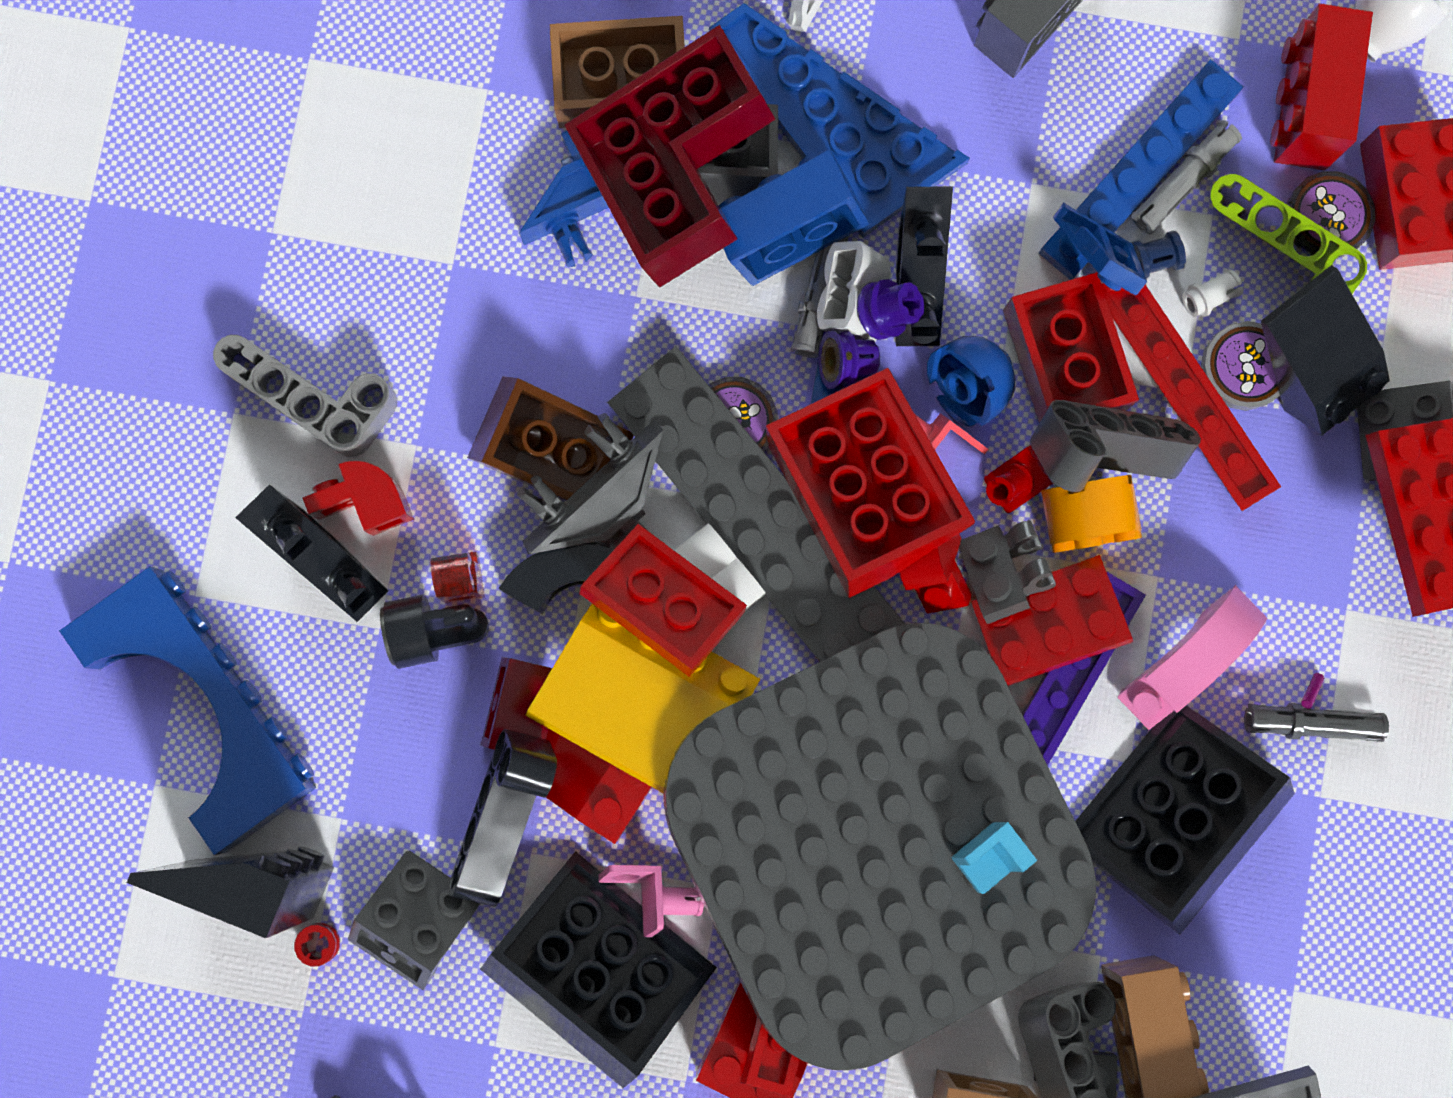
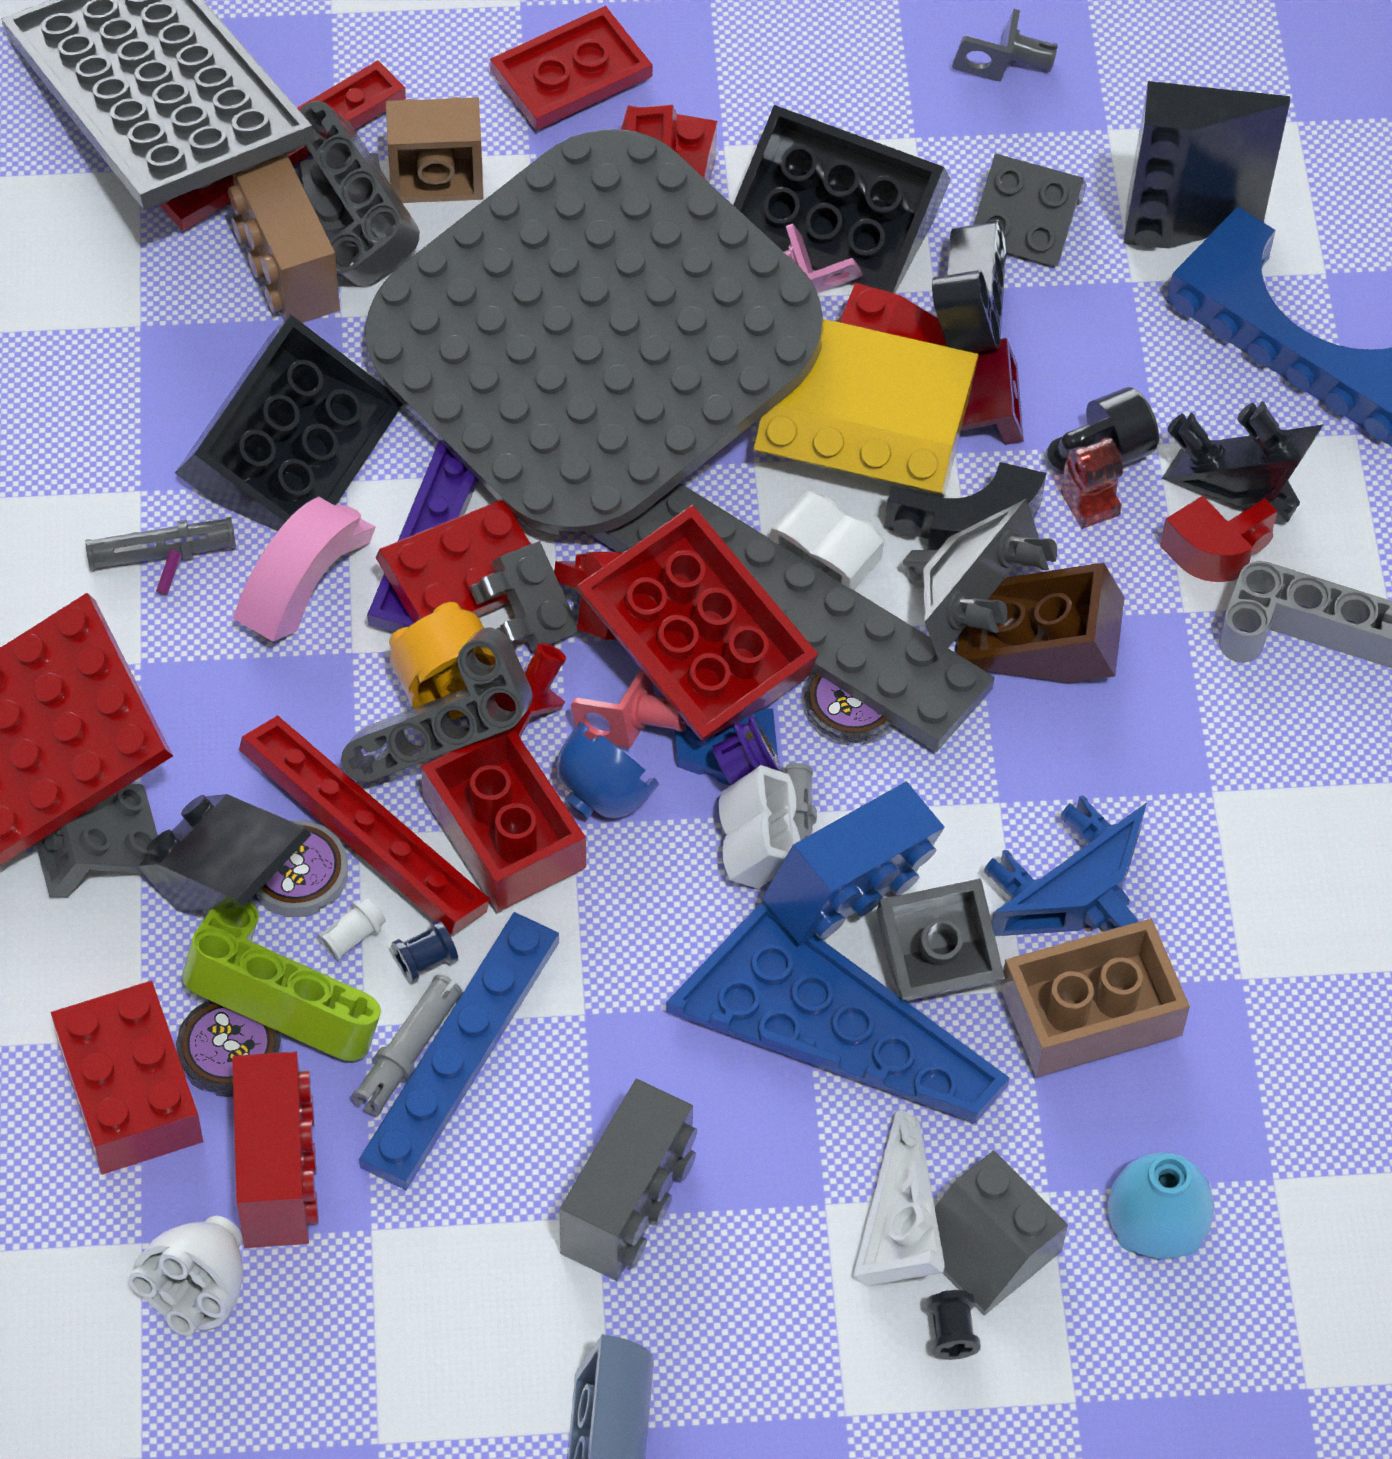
camera: 165 degrees right, 25 degrees down
(327, 953) = (1110, 187): red bush -> none
(652, 140) = (1025, 852): dark red brick -> none
(663, 599) = (875, 478): red plate -> none
(889, 307) = (719, 799): dark purple piece -> none
(923, 258) = (691, 858): black connector -> none
(993, 856) = (484, 327): medium azure panel -> none
(1105, 250) = (492, 905): blue wing -> none

